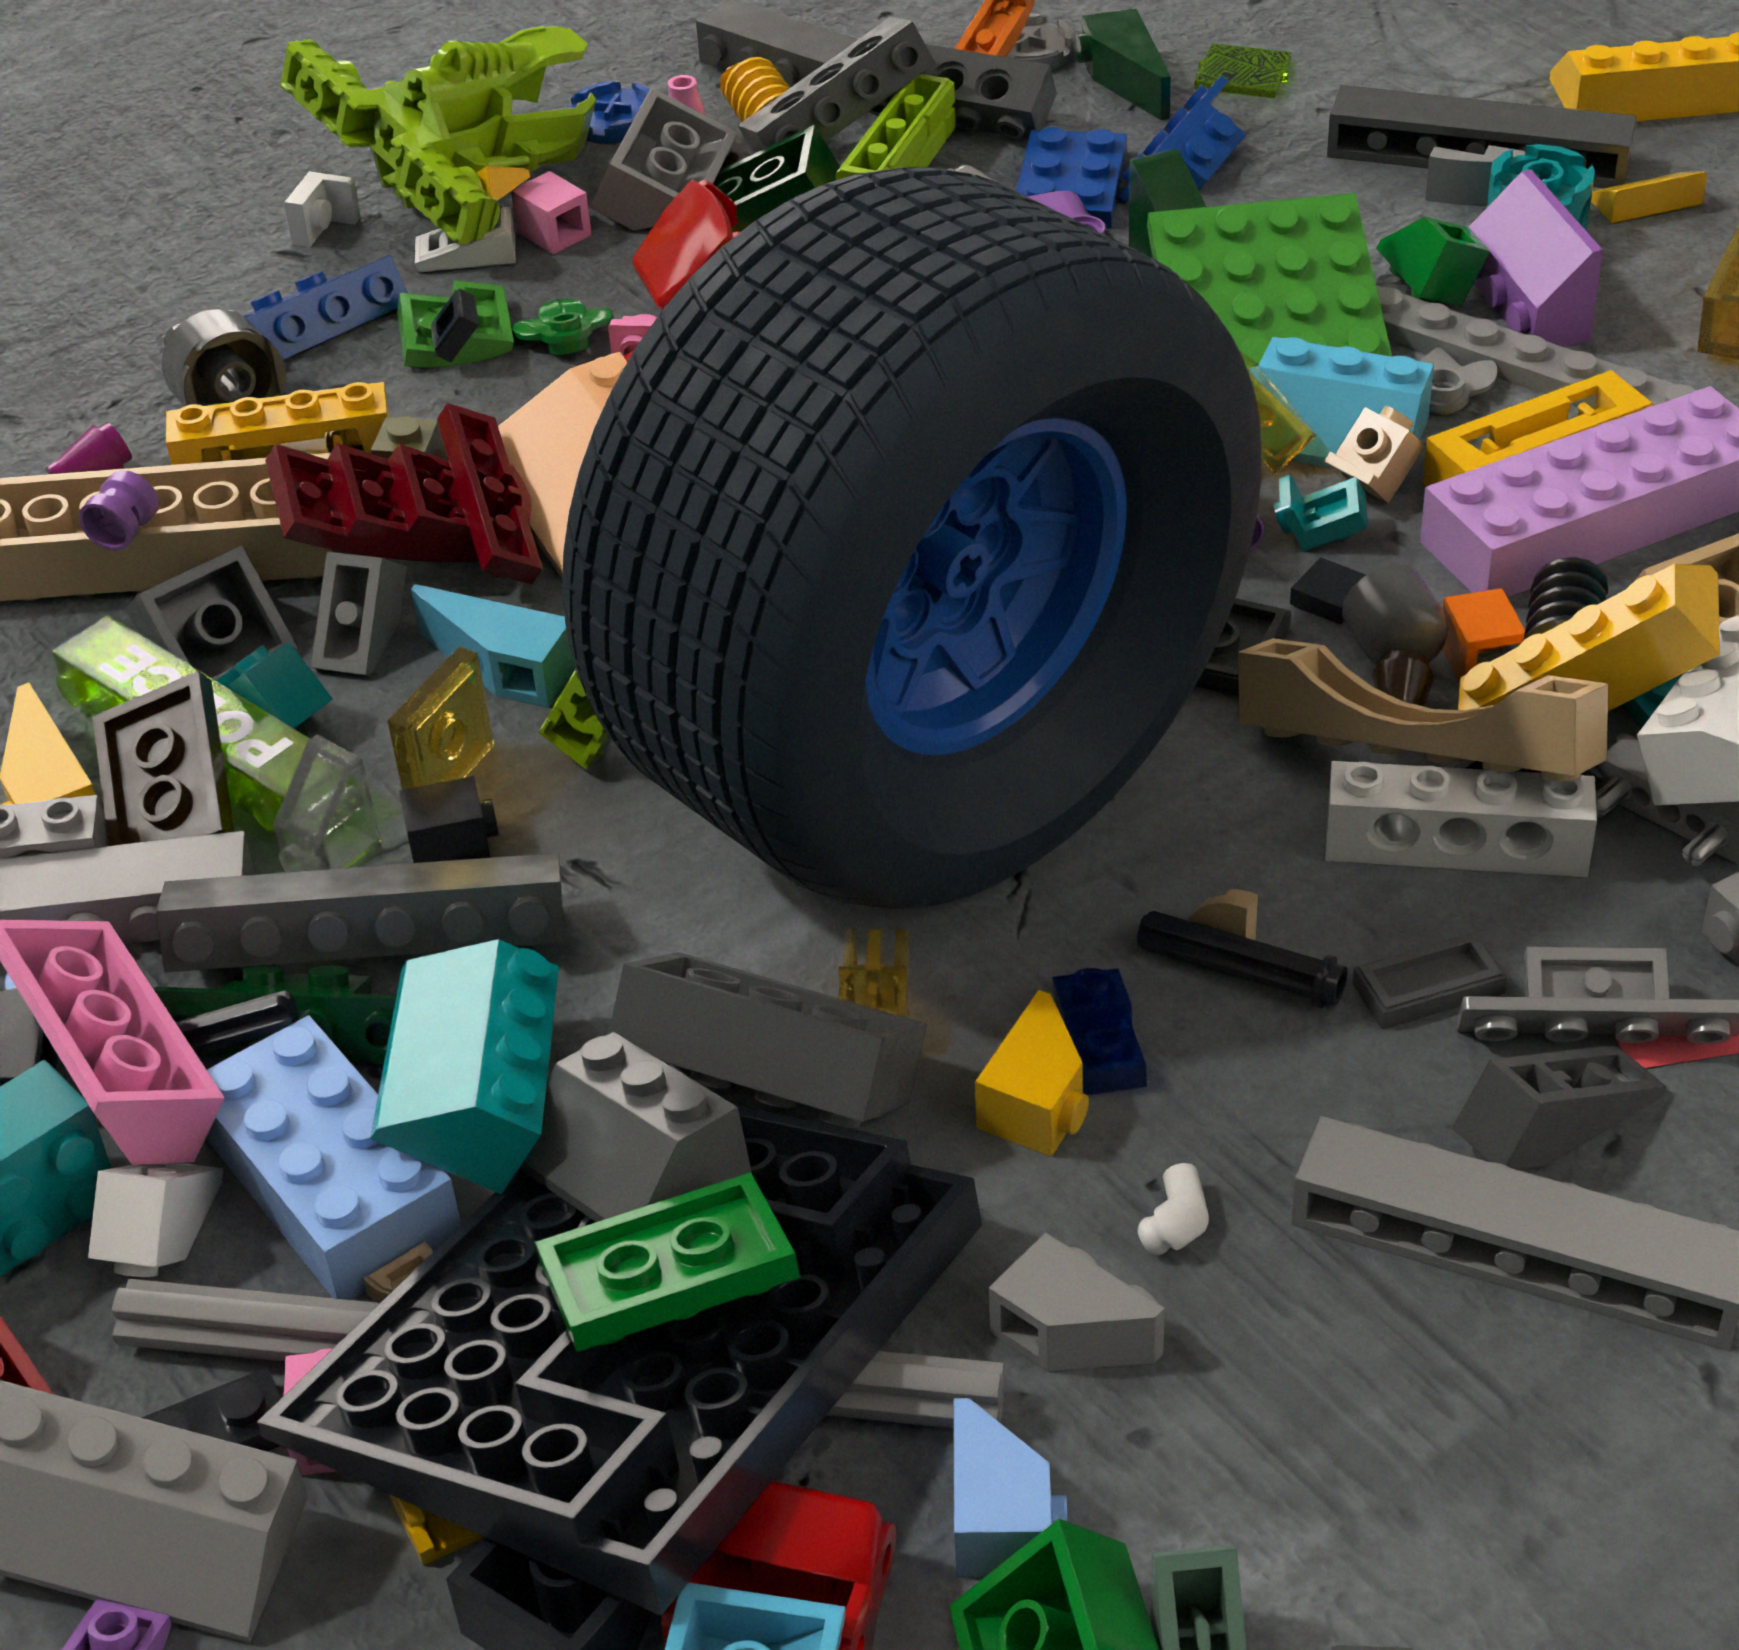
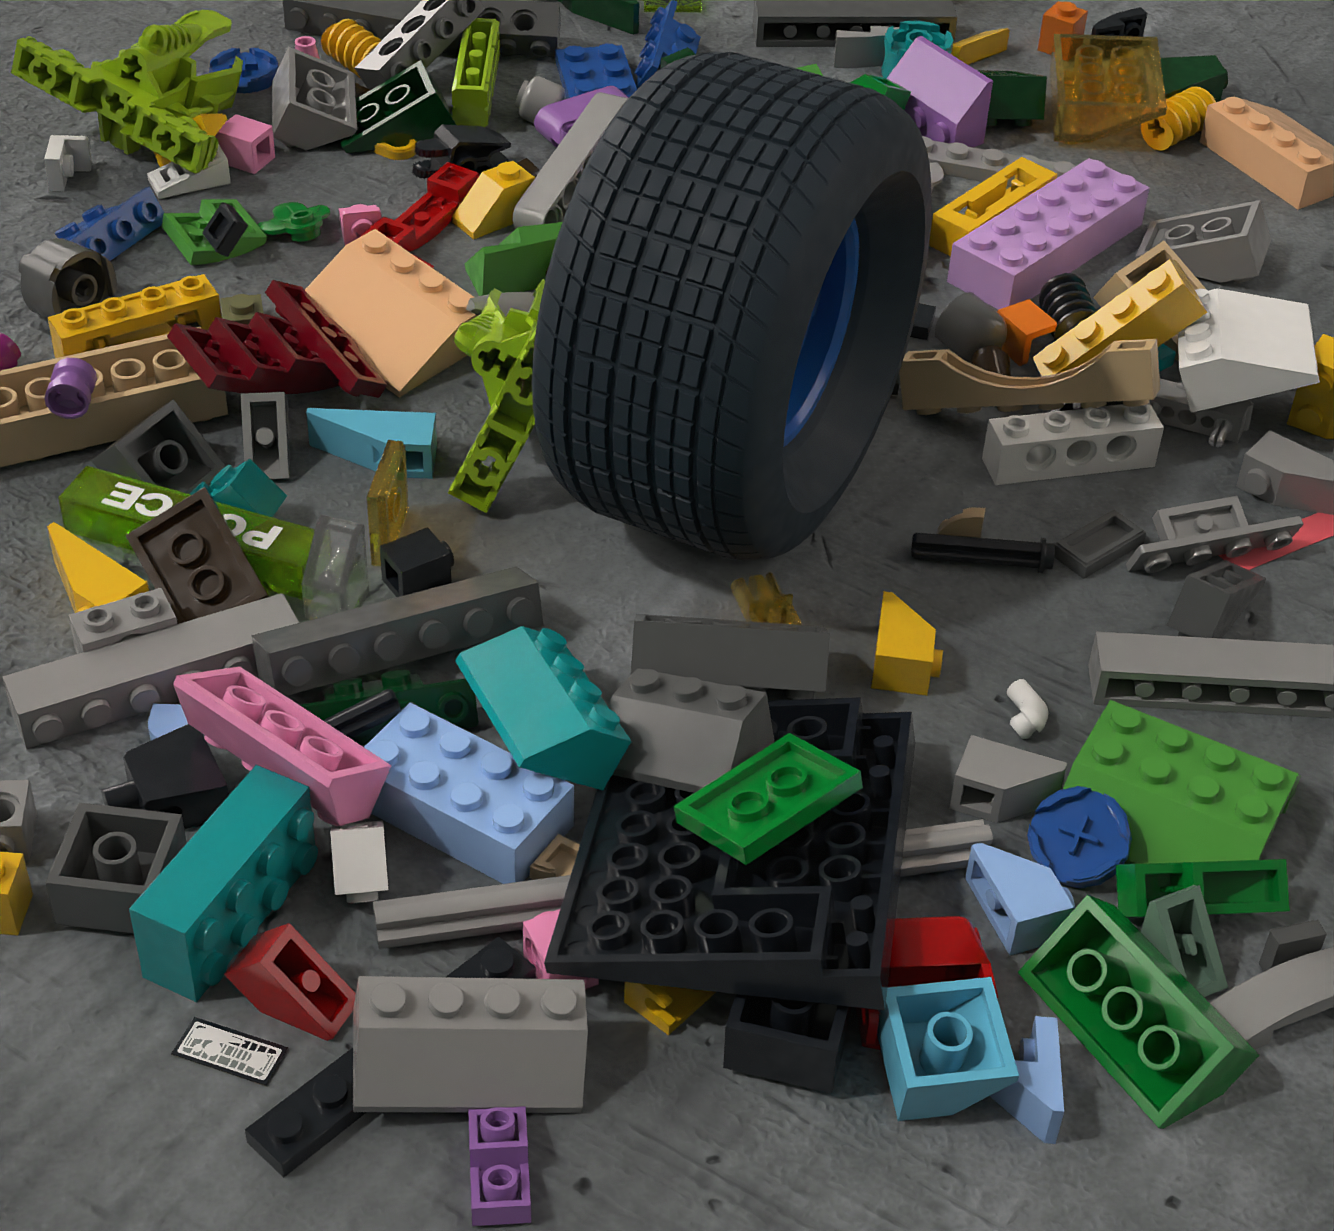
camera: 25 degrees left, 0 degrees up
(684, 239) = (384, 160): red piece -> none
(1101, 1027) = (924, 601): clear blue slope -> none
(1136, 1425) = (1080, 836): none -> blue tile
(1290, 1551) = (1225, 885): none -> green slope
(1317, 1402) = (1181, 789): none -> bright green slope
(1647, 273) = (1016, 97): none -> dark green slope

